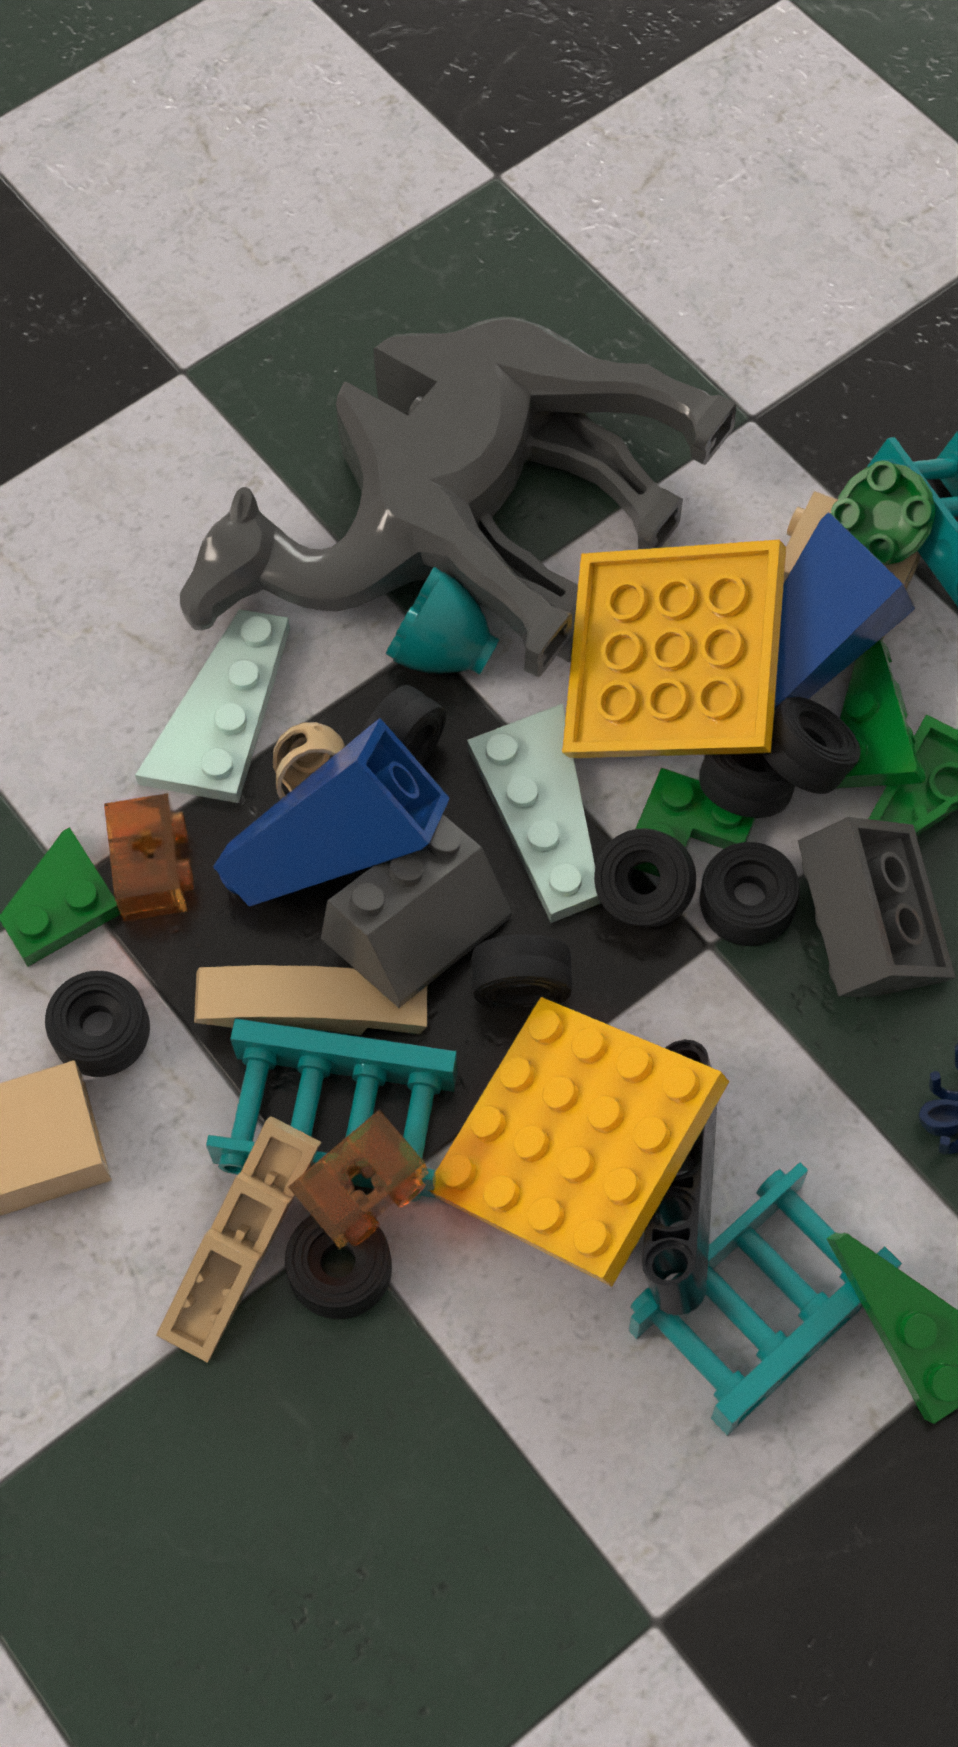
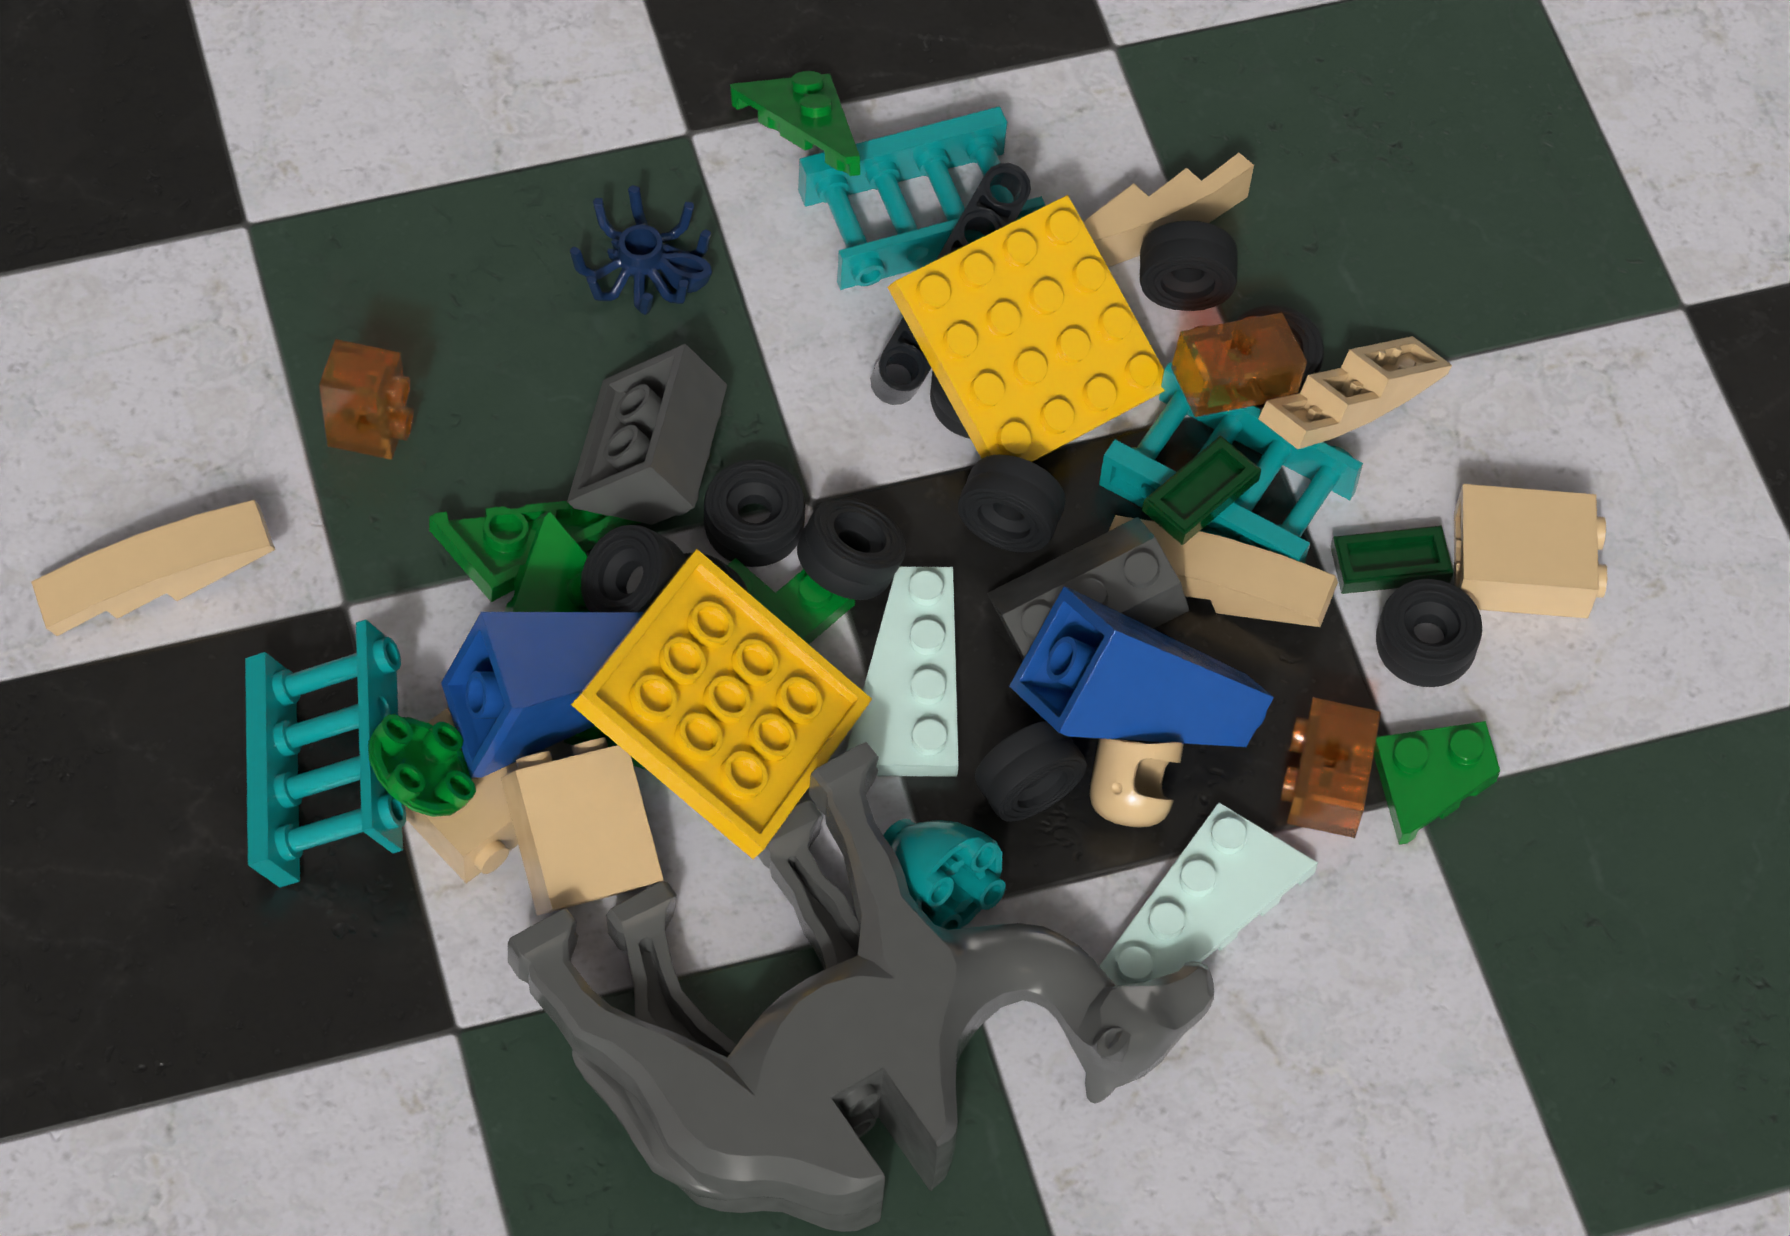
camera: 165 degrees left, 5 degrees down
(155, 1096) = (1390, 558): none -> dark green tile
(348, 1042) = (1201, 490): none -> dark green tile
(457, 1310) = (1188, 265): none -> black tyre
(530, 1362) = (1132, 215): none -> tan slope
(737, 511) = (581, 826): none -> tan brick

